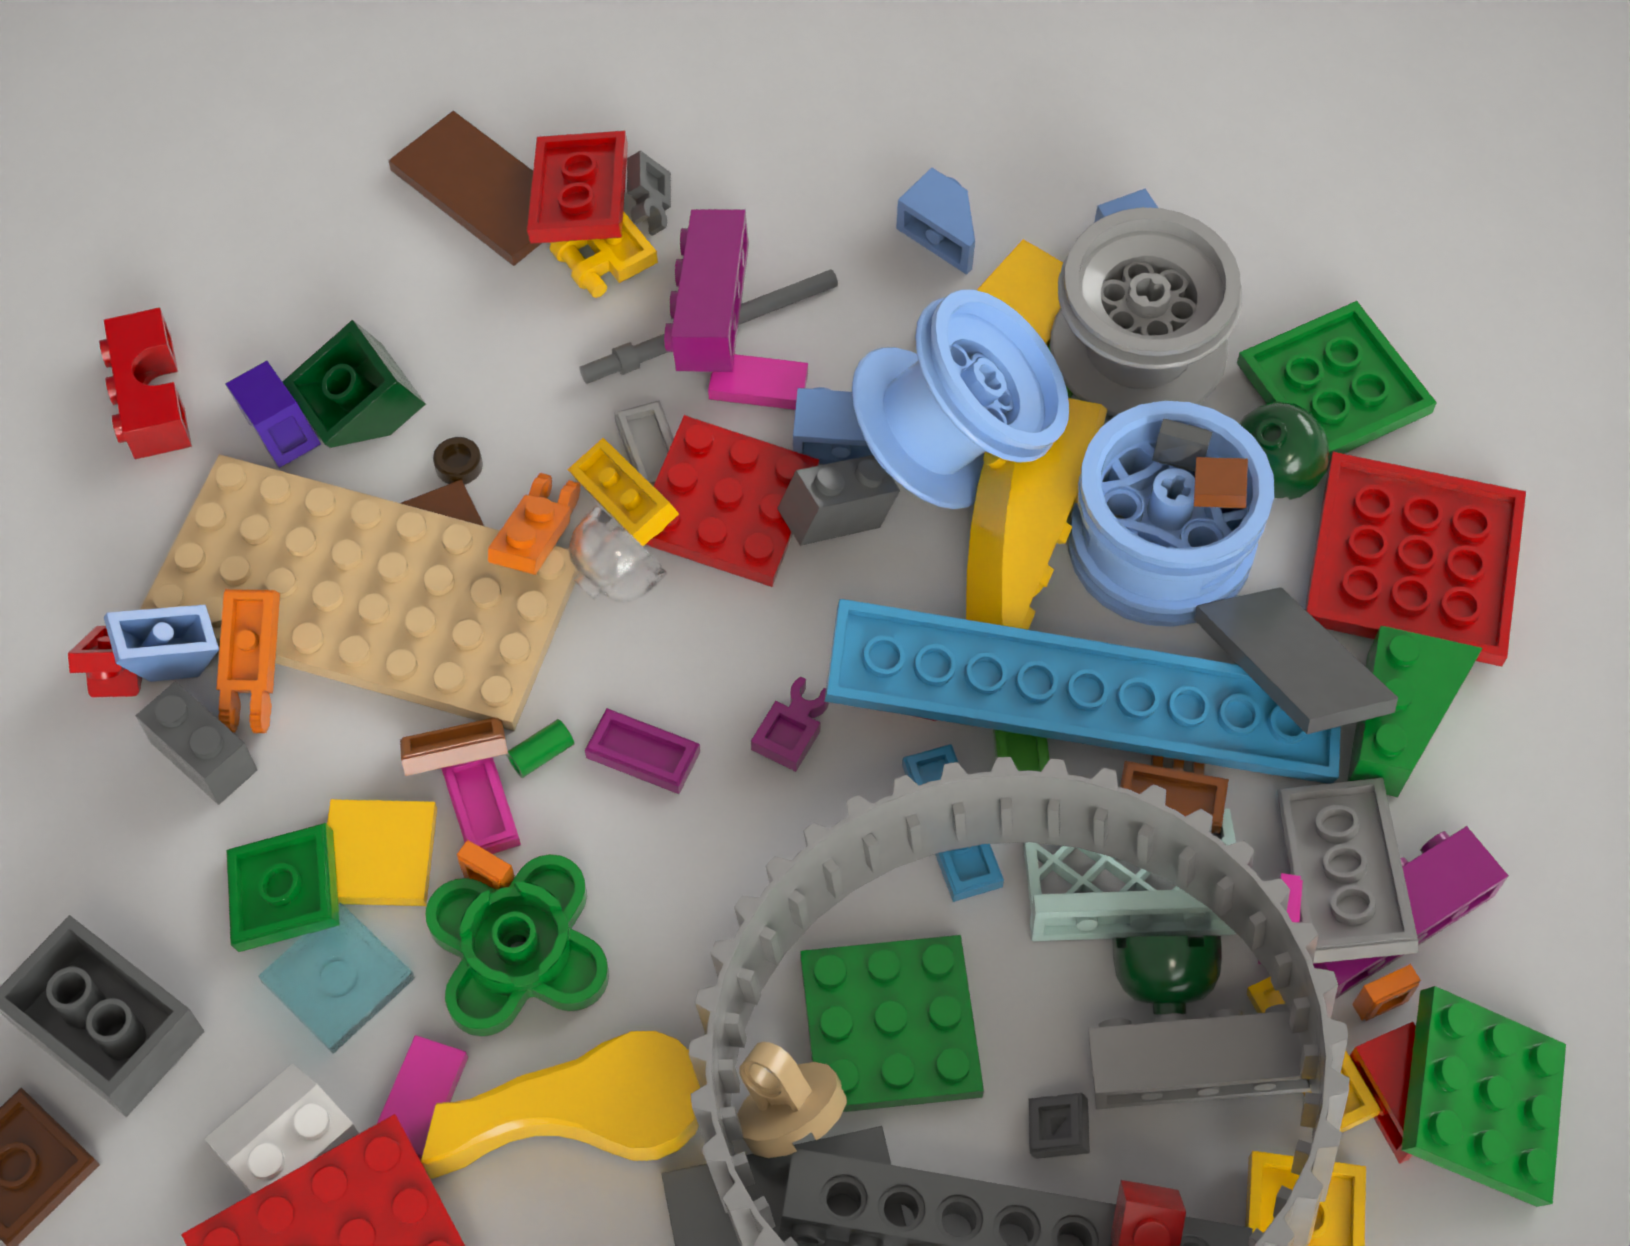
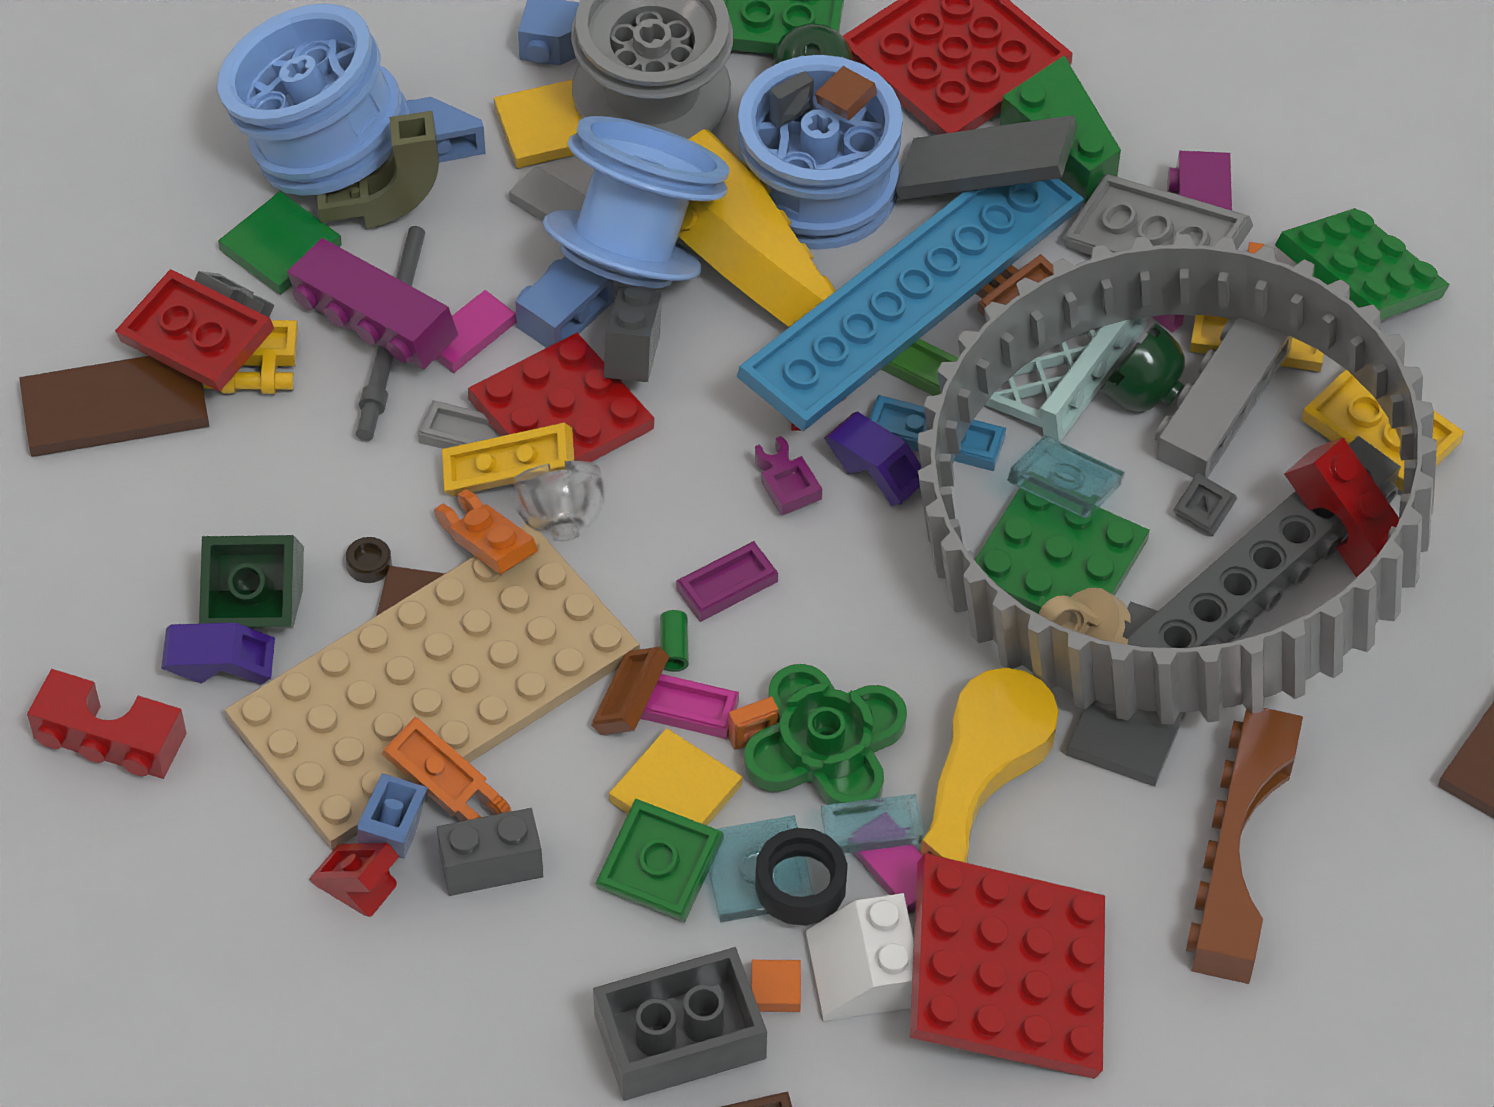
camera: 55 degrees left, 5 degrees down
(212, 1075) = (776, 985): none -> orange tile
(306, 985) = (802, 843): none -> black tyre
(438, 1046) = (874, 823): none -> clear light blue tile
(742, 182) = (275, 240): none -> green tile
(848, 223) = (398, 183): none -> olive arch
(868, 106) = (312, 98): none -> light blue wheel
(873, 765) = (888, 458): none -> dark purple slope
(980, 970) = (1065, 476): none -> clear light blue tile

